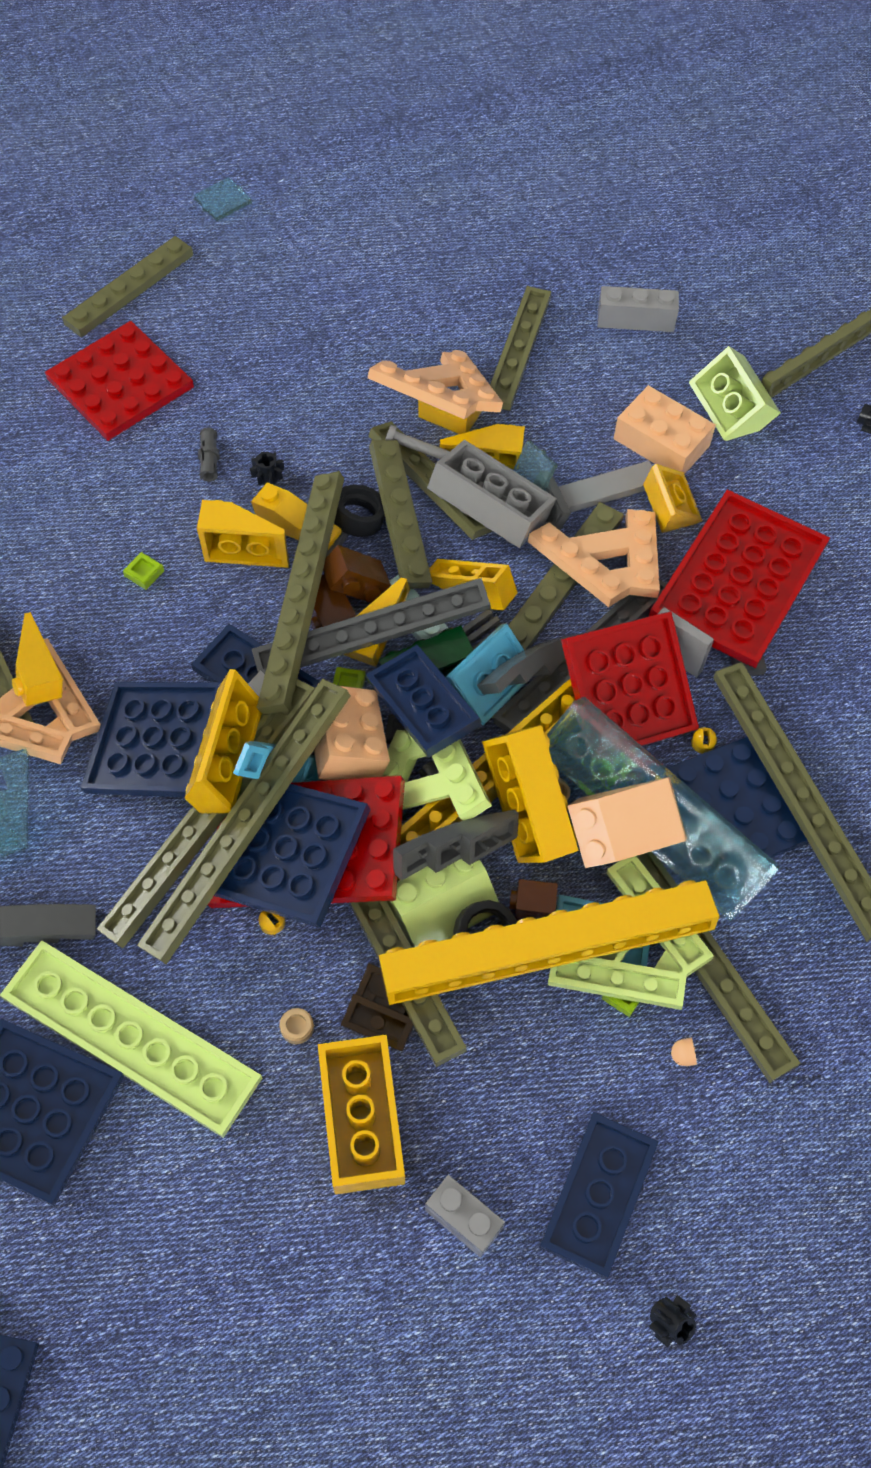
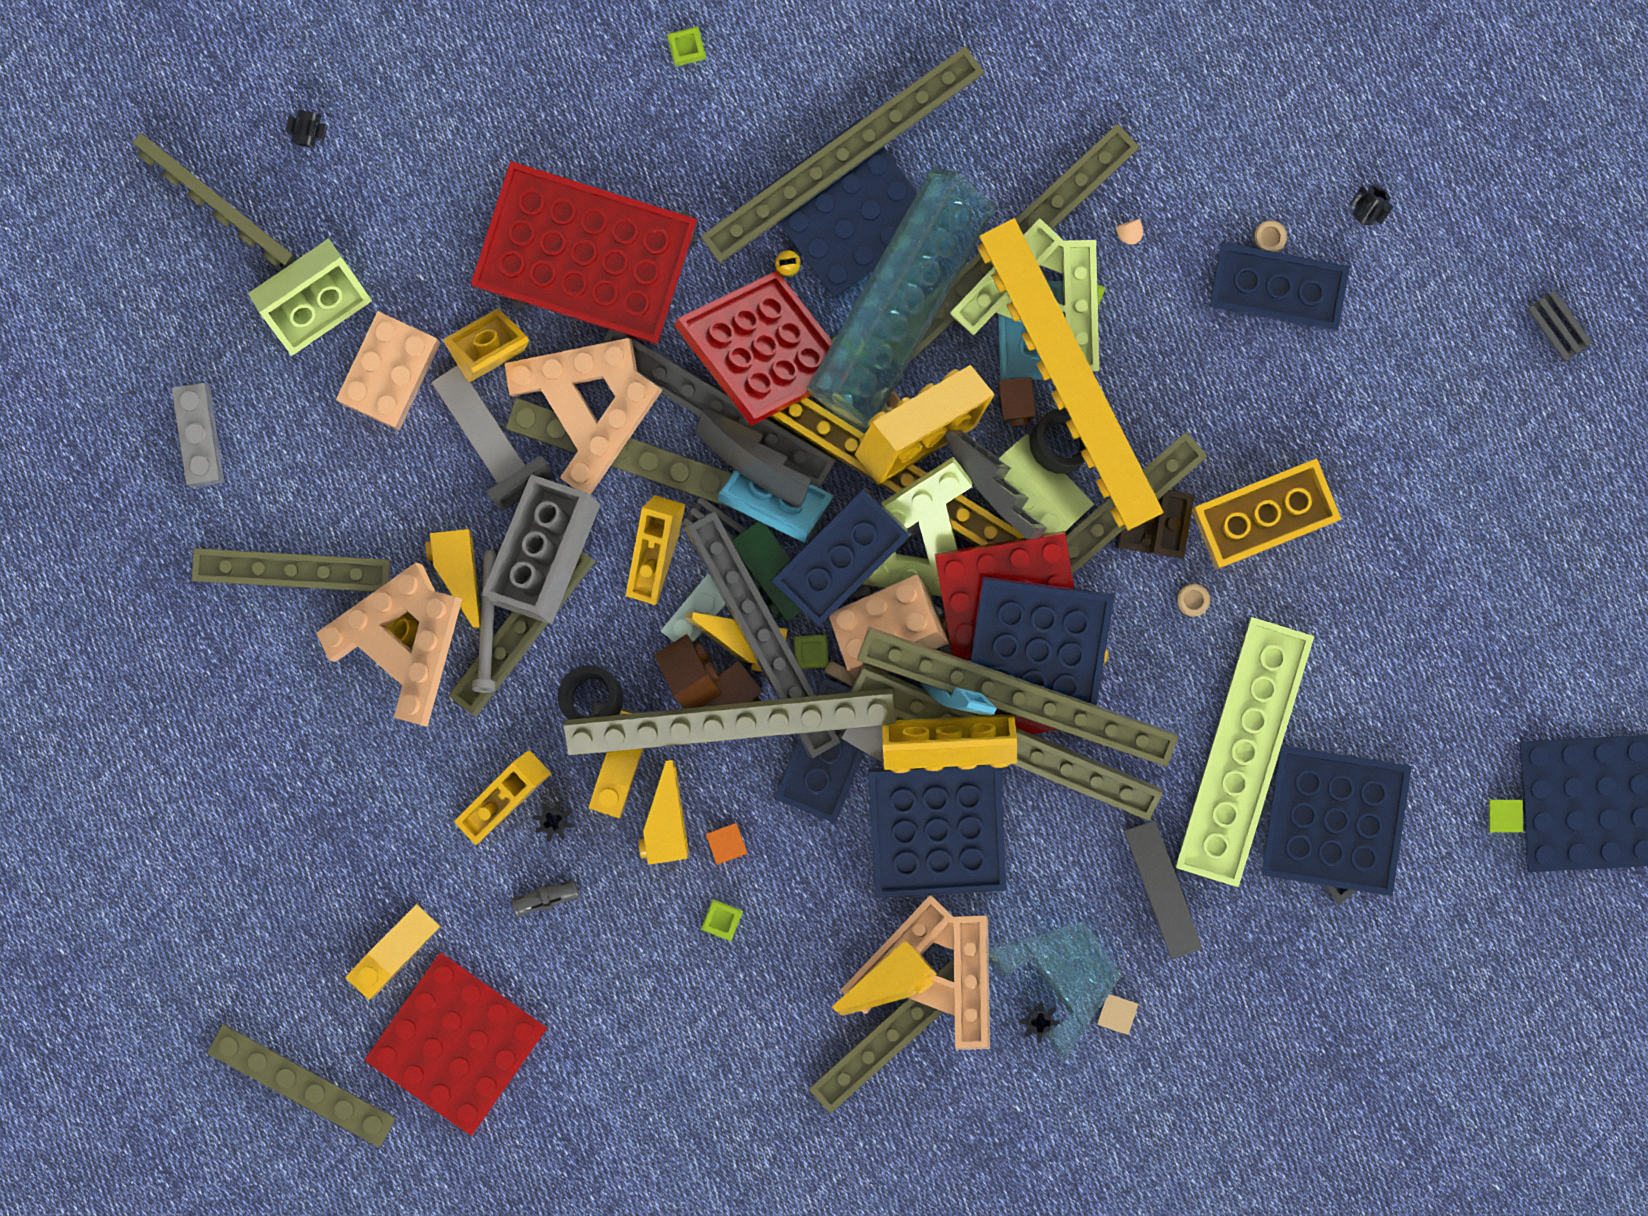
camera: 100 degrees left, 25 degrees up
(202, 348) = (392, 952): none -> yellow slope
(205, 586) = (726, 843): none -> orange tile
(222, 199) = (117, 1017): clear light blue piece -> none
(301, 442) = (502, 796): none -> yellow slope
(400, 513) = (588, 648): olive plate -> none
(464, 1216) = (1330, 401): light grey brick -> none
(535, 465) = (493, 511): clear light blue piece -> none
(626, 822) = (933, 324): light nougat slope -> none
(655, 1200) = (1270, 236): none -> tan tile
(693, 644) = (688, 300): light grey tile -> none

